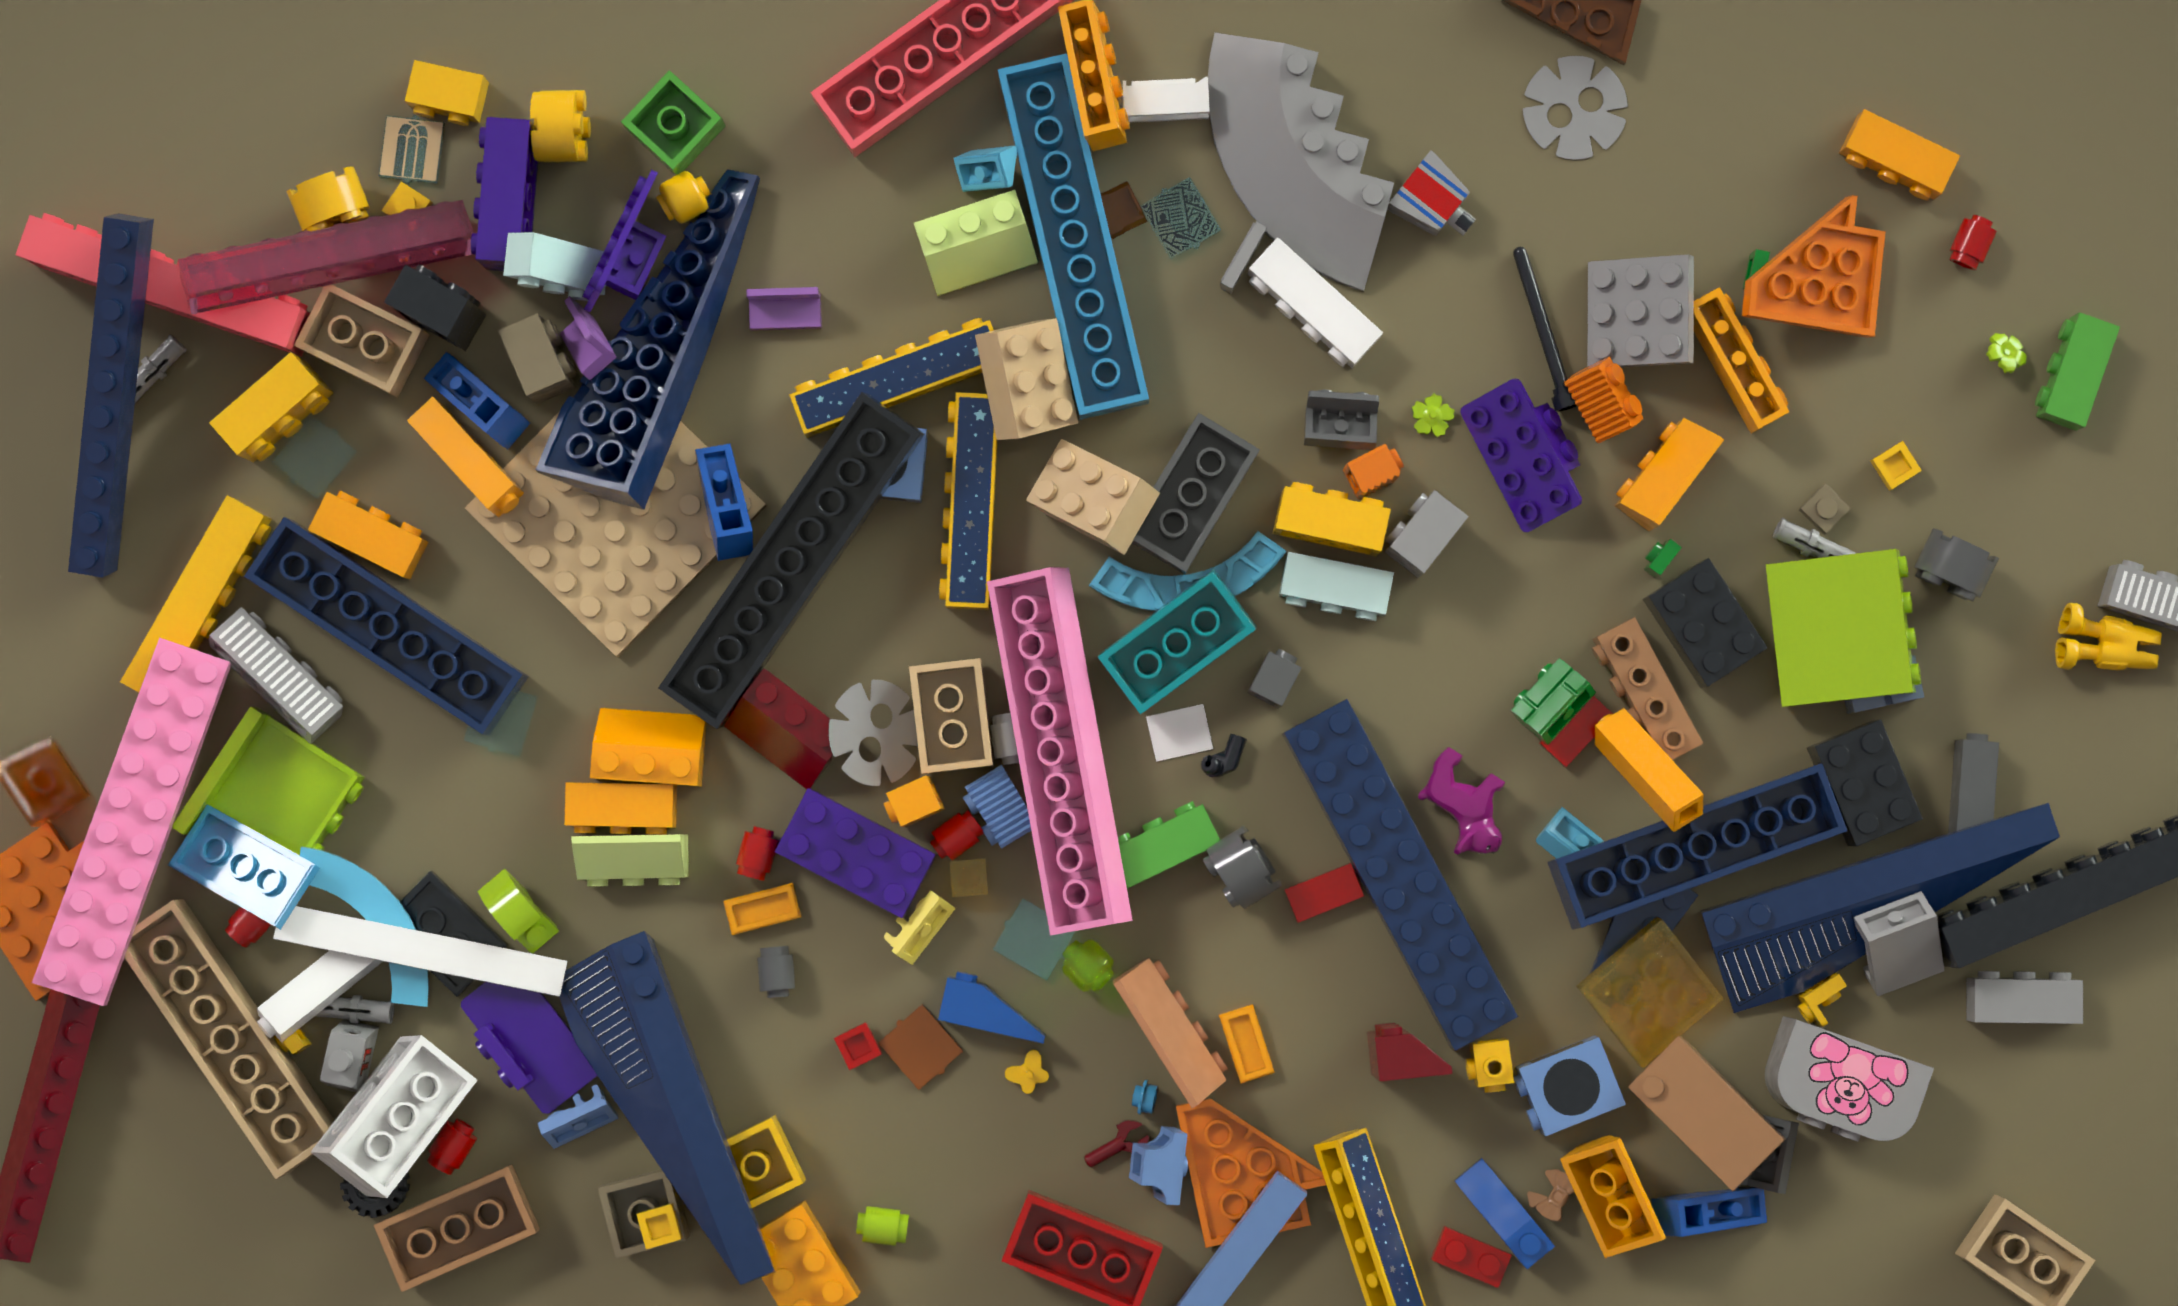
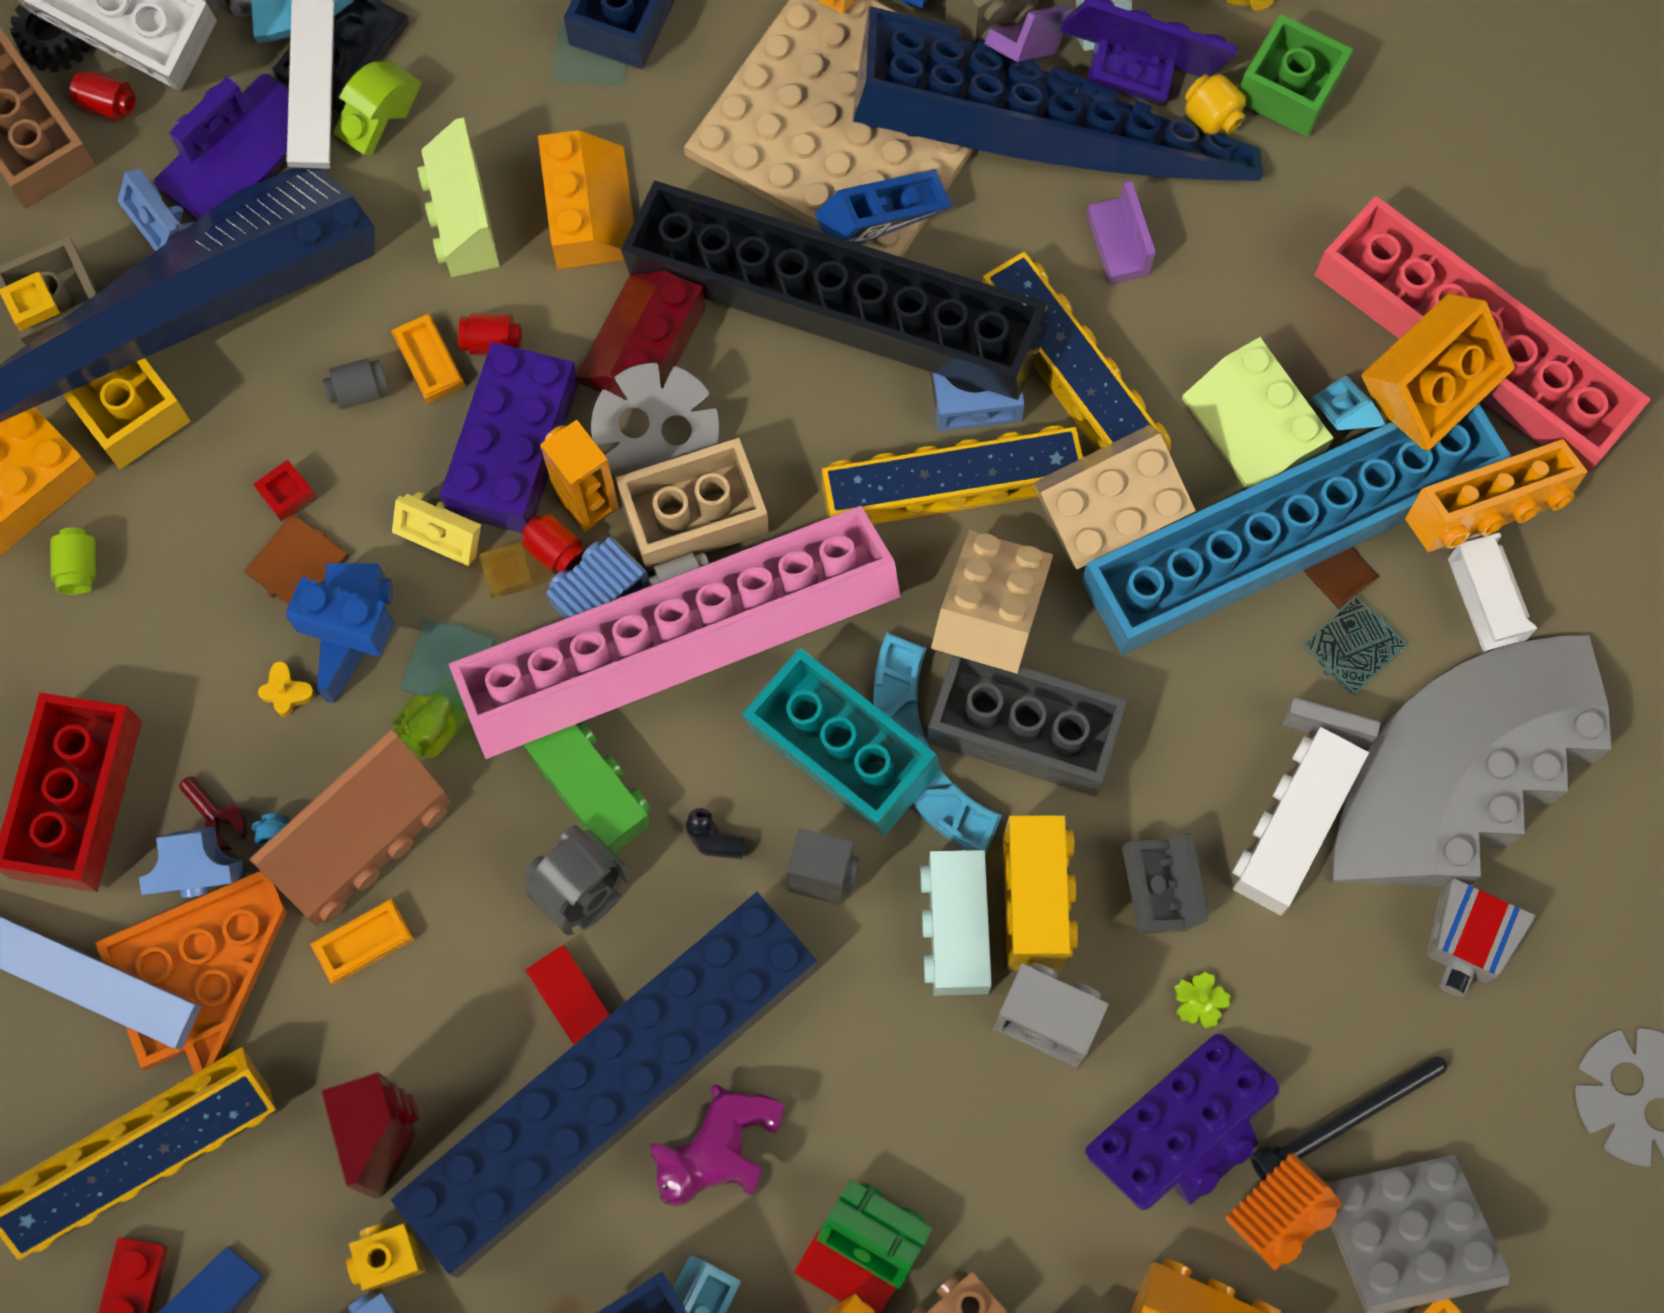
camera: 75 degrees right, 15 degrees down
(620, 807) = (514, 184): light orange brick -> none
(984, 91) = (1439, 369): none -> light orange slope
(994, 1013) = (340, 617): none -> blue brick
(1179, 732) = (732, 779): white sticker -> none
(1373, 470) = (1113, 932): orange brick -> none

